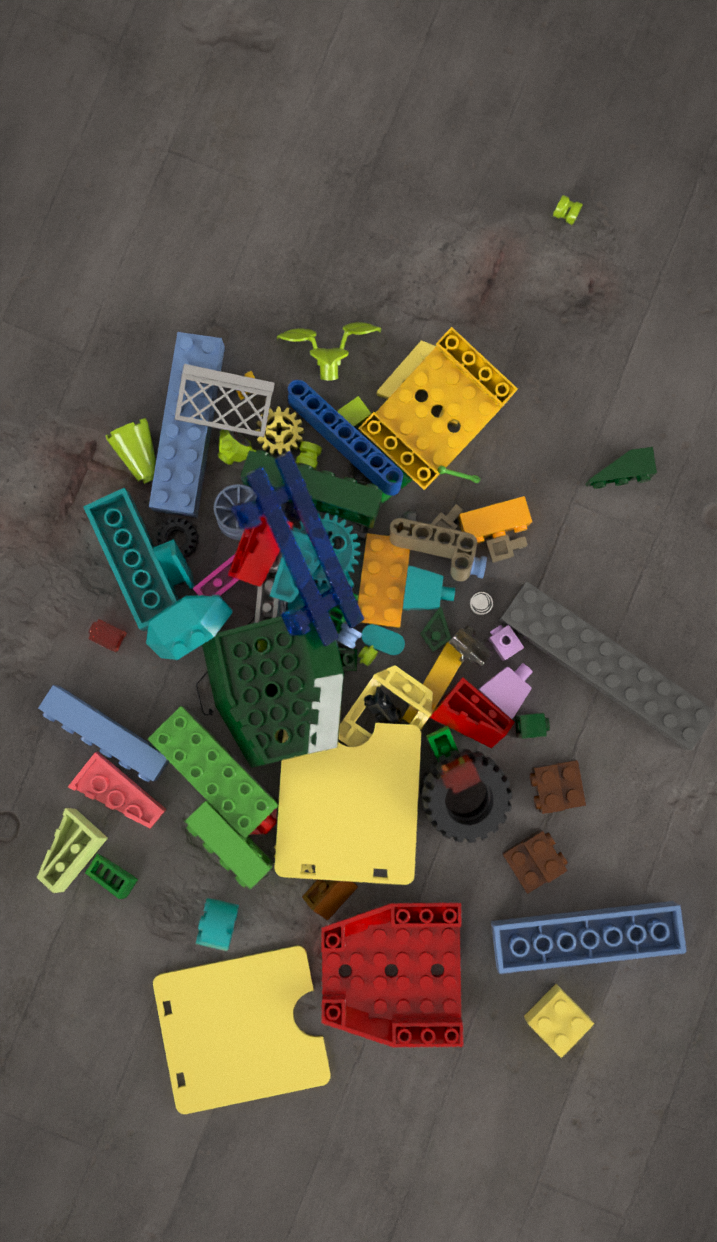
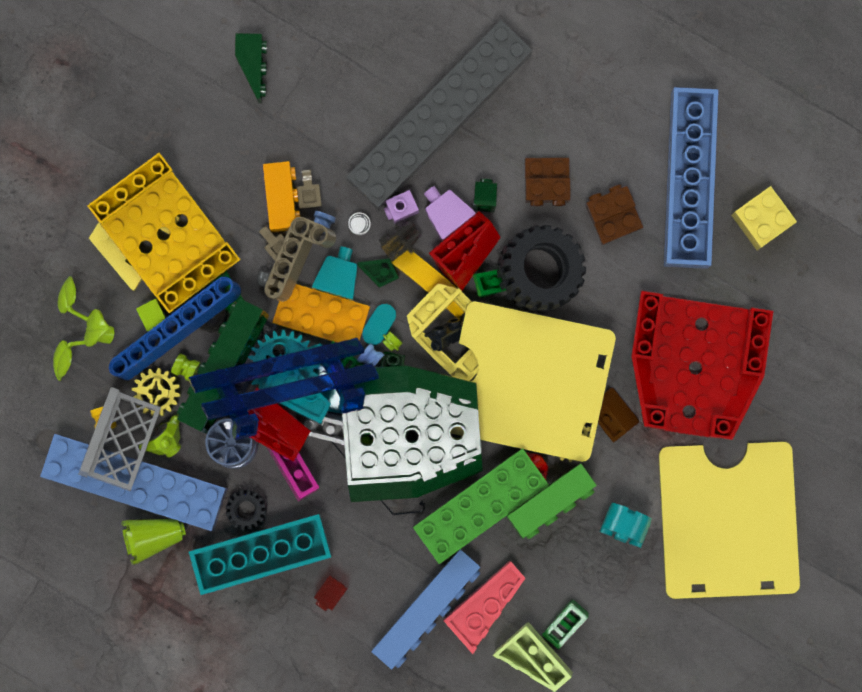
camera: 90 degrees left, 0 degrees up
(174, 563) = (271, 515): teal panel -> none
(186, 625) = (336, 511): teal wedge -> none
(442, 469) = (223, 239): bright green hinge -> none
(459, 774) = (519, 269): clear red brick -> none

